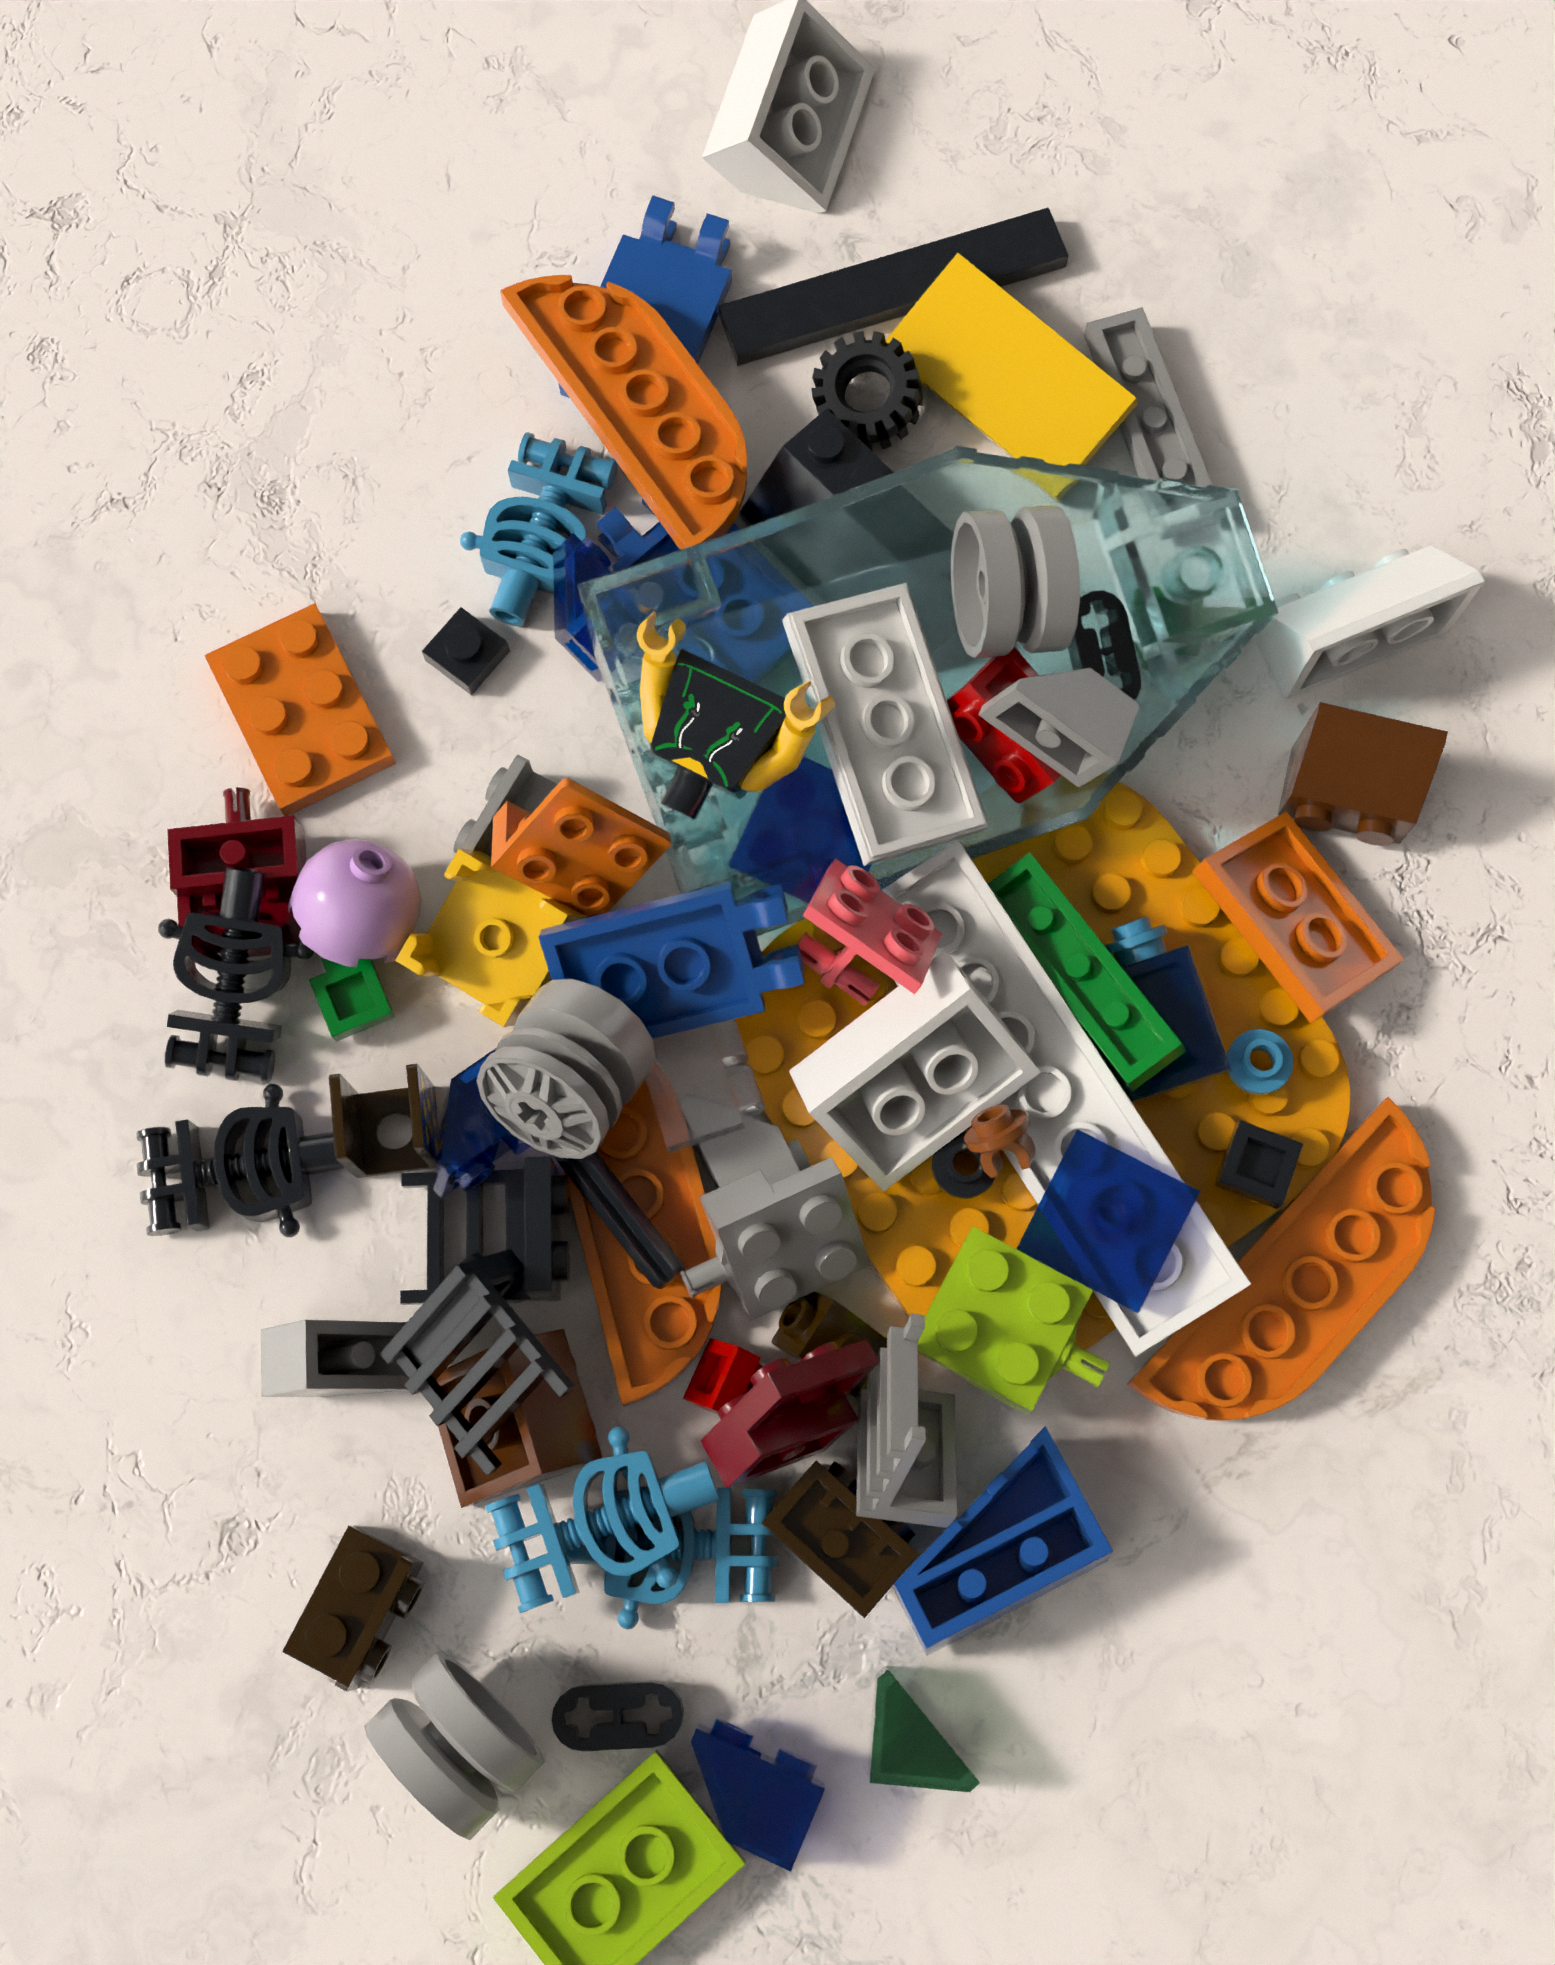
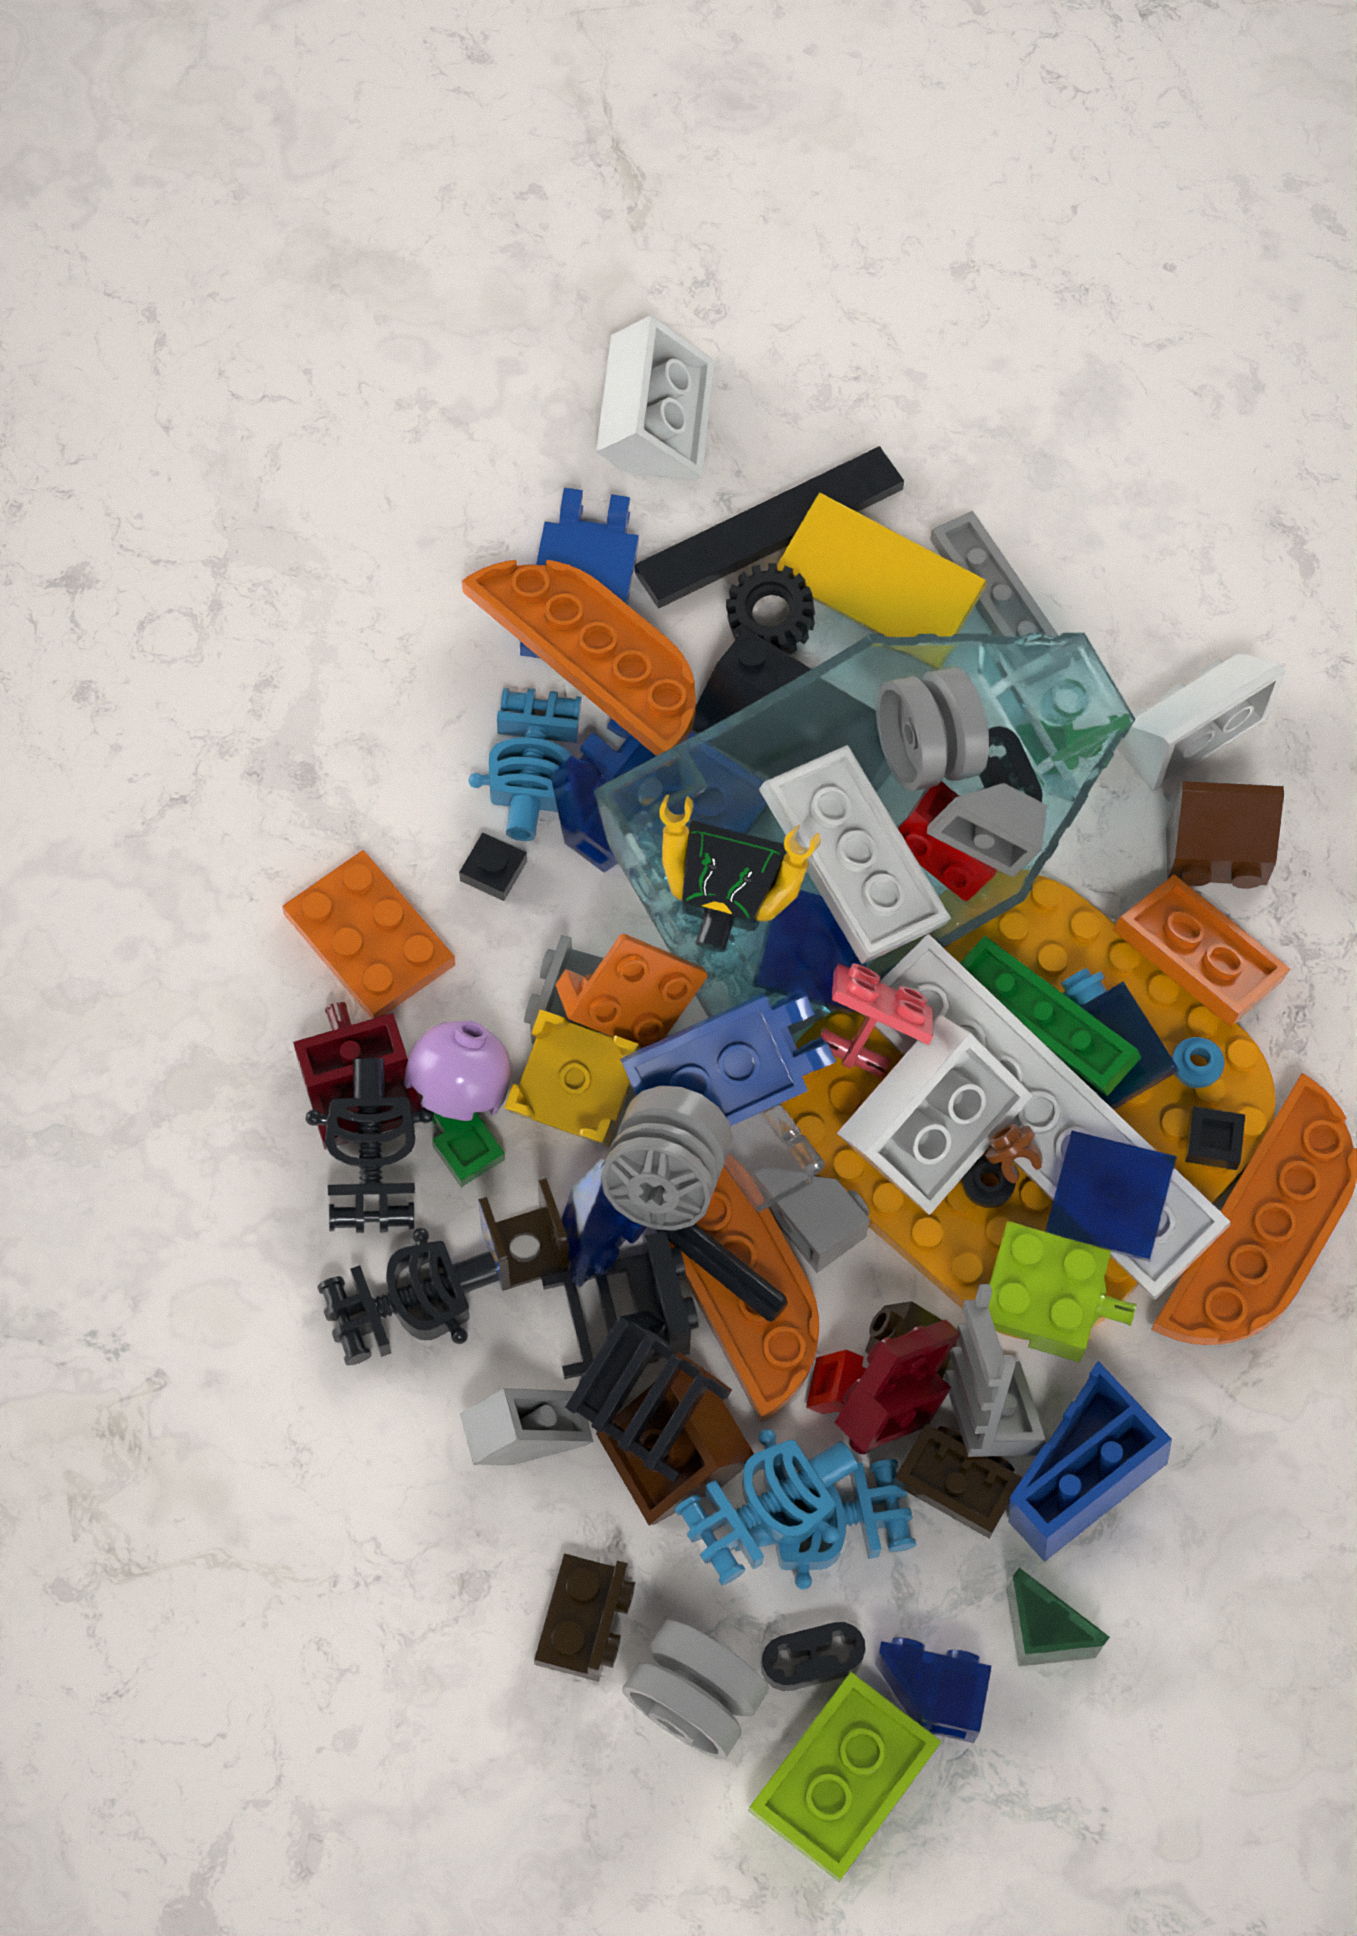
camera: 15 degrees left, 10 degrees down
(780, 1238) = (859, 1261): light grey plate -> none

